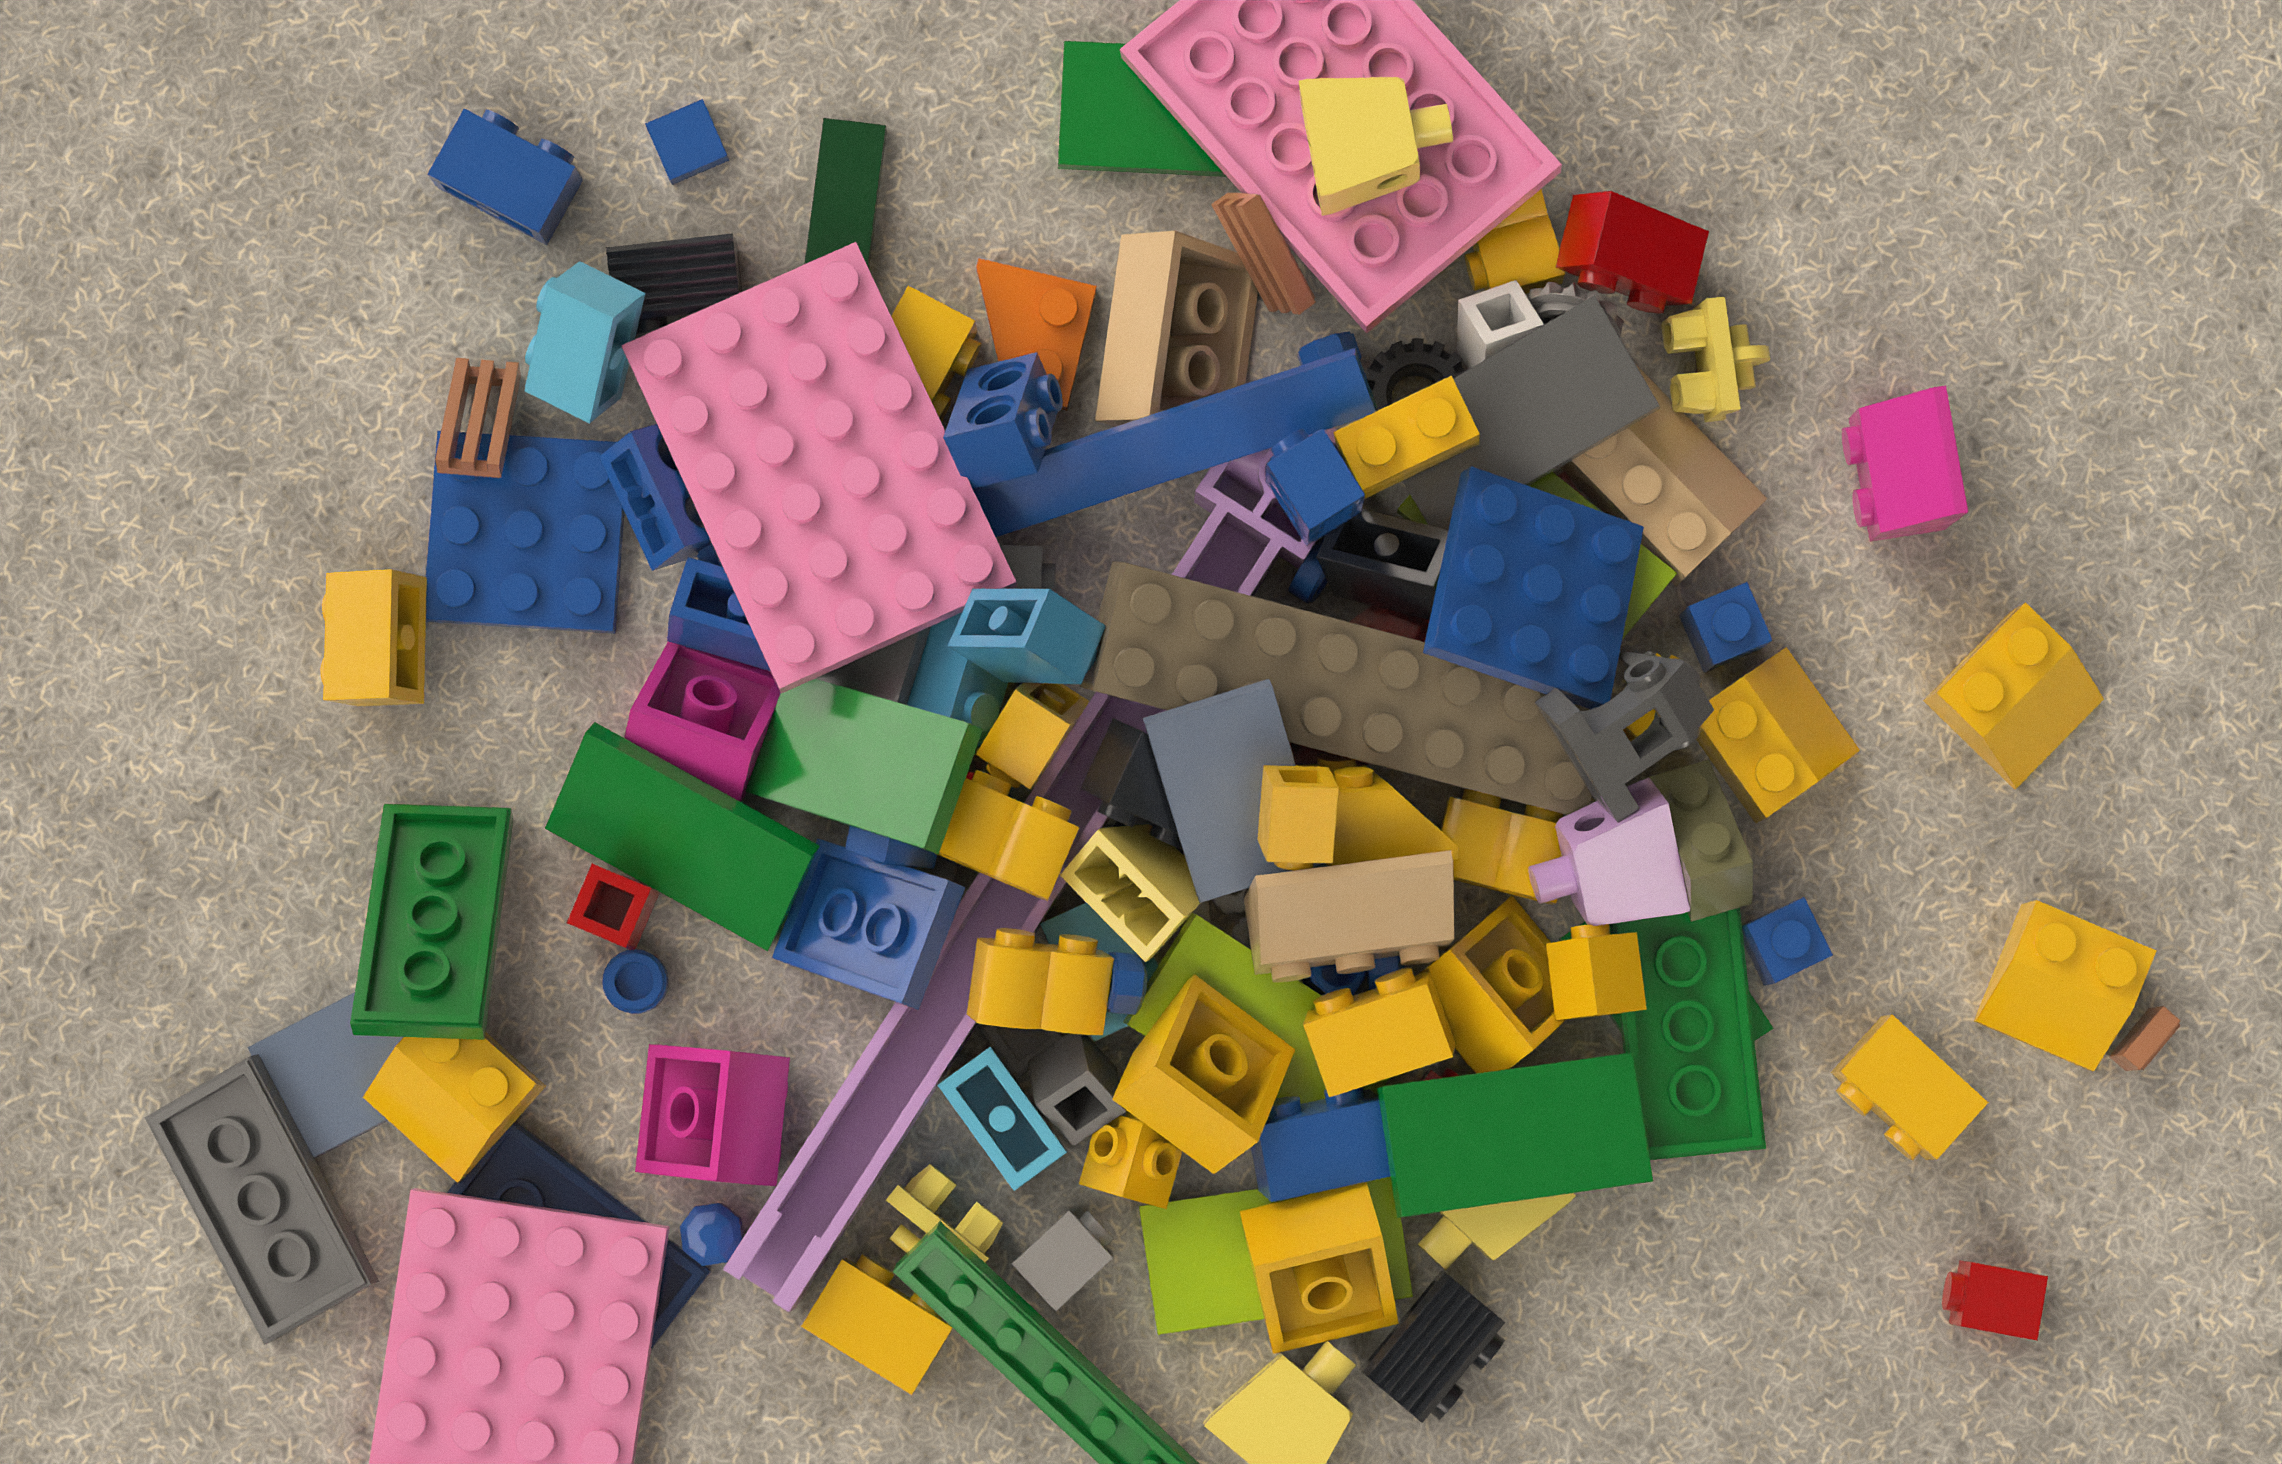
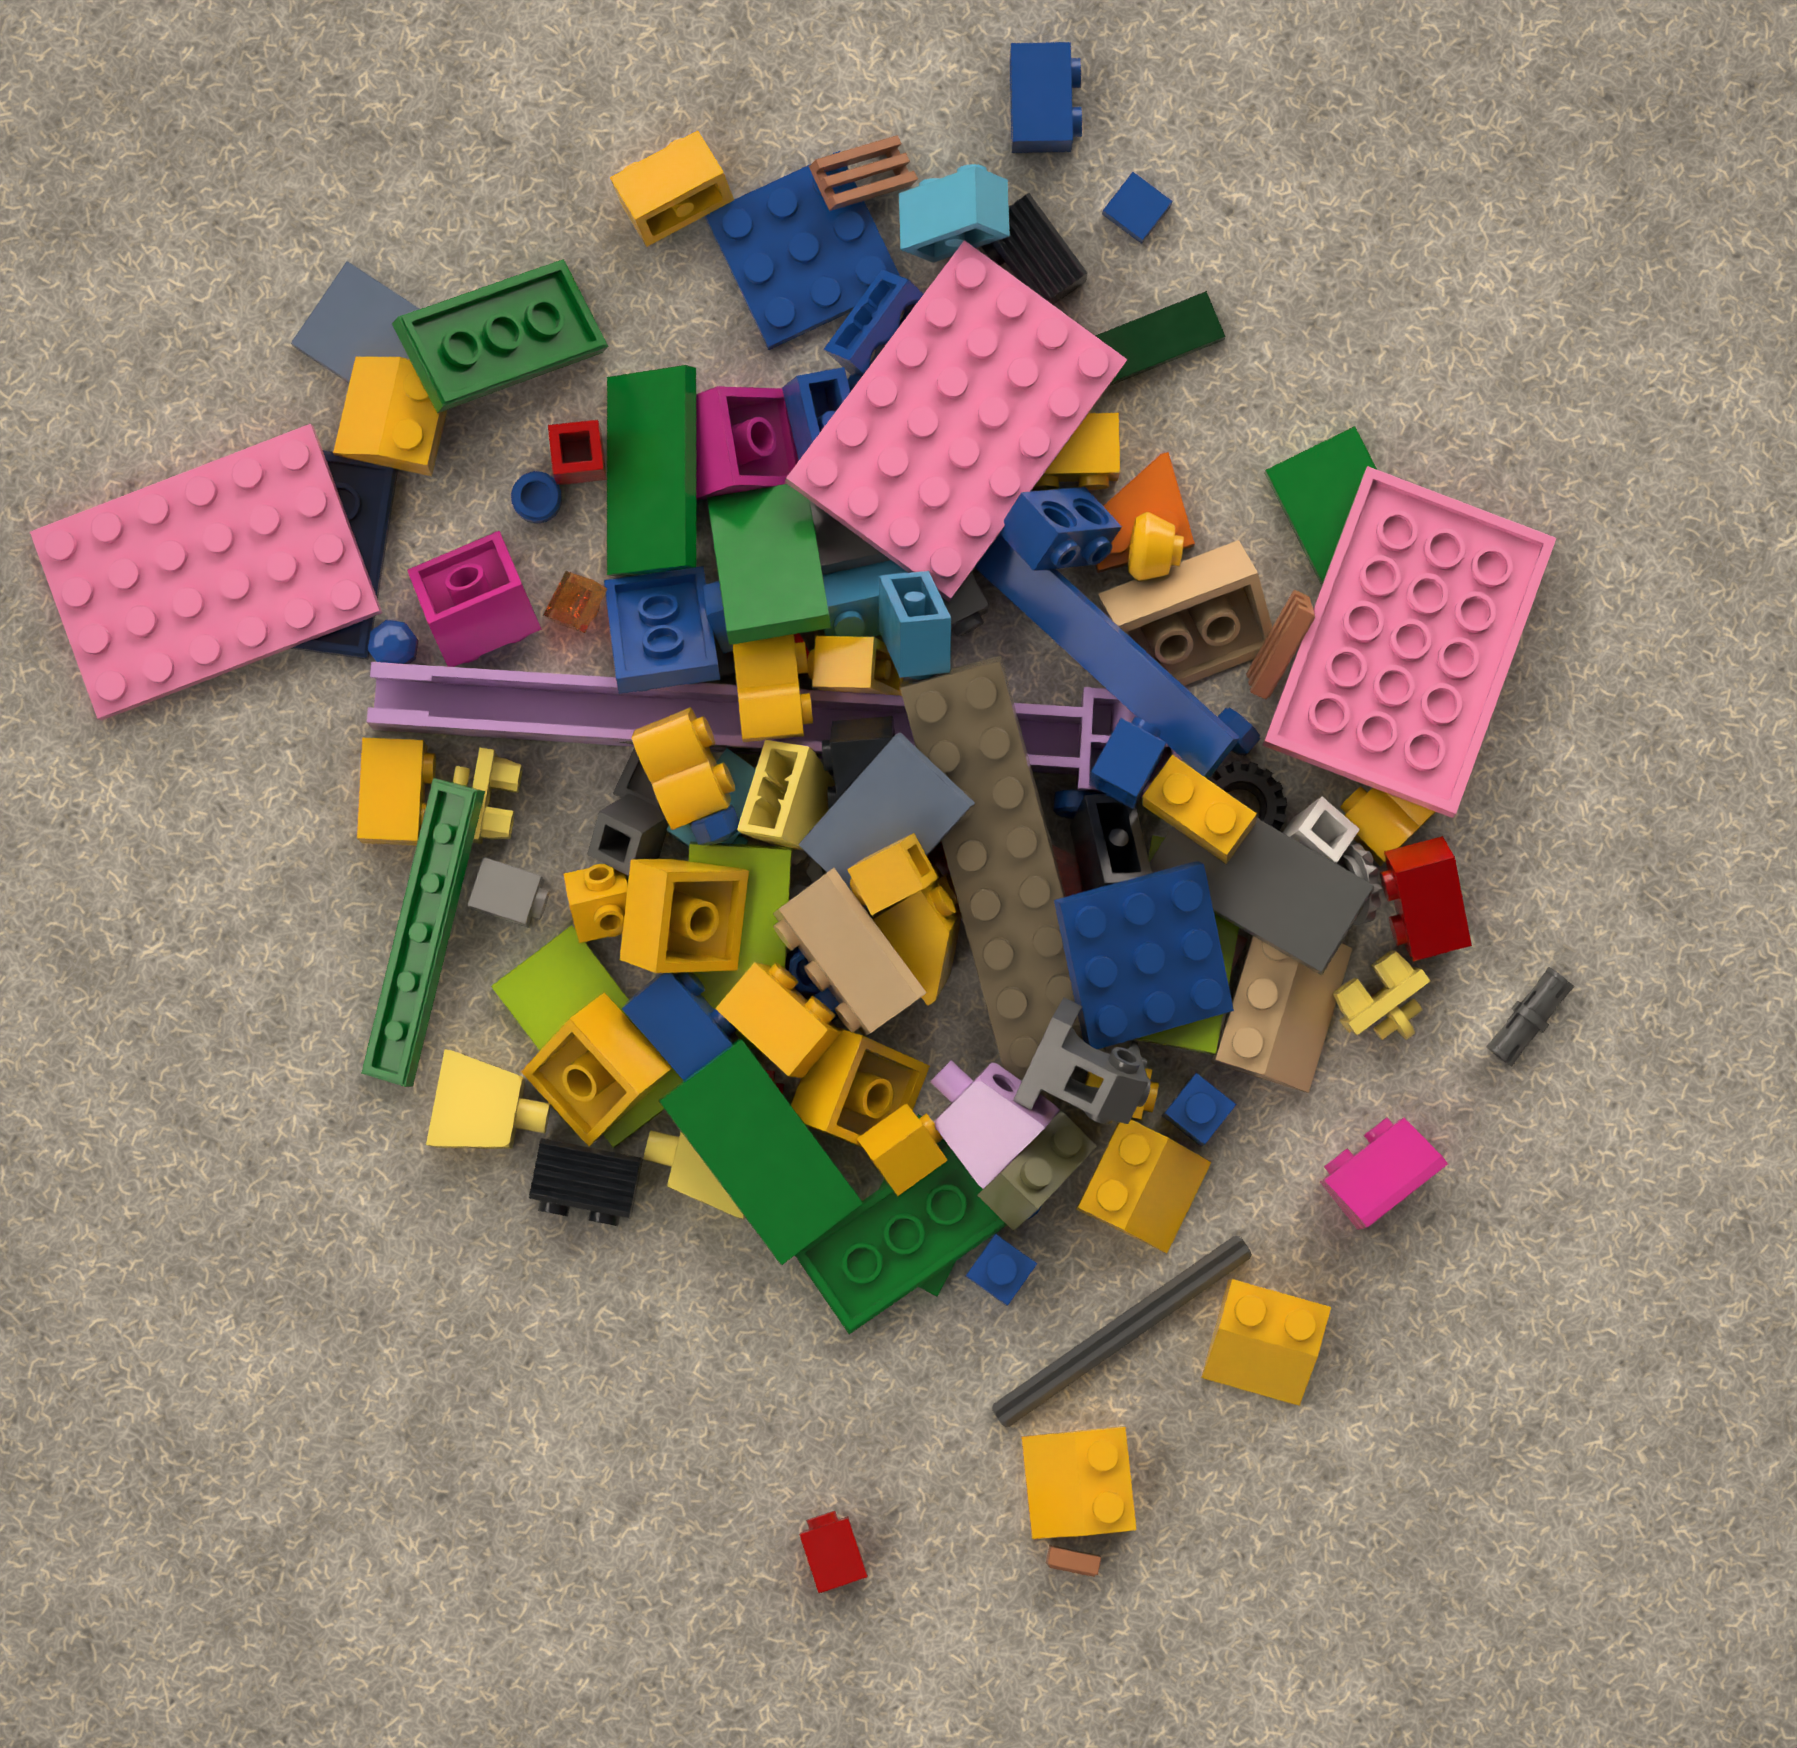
camera: 60 degrees right, 0 degrees up
(261, 1199) = (249, 328): dark grey tile -> none
(779, 1002) = (575, 602): none -> clear orange plate
(1002, 1118) = (578, 796): medium azure brick -> none
(1080, 330) = (1153, 547): none -> yellow cone
(1366, 137) = (1395, 667): light yellow torso -> none
(1499, 844) = (956, 1031): yellow brick -> none
(1816, 213) = (1530, 1016): none -> dark grey pin
(1907, 1089) = (945, 1412): yellow brick -> none
(1919, 847) = (1121, 1331): none -> dark grey axle

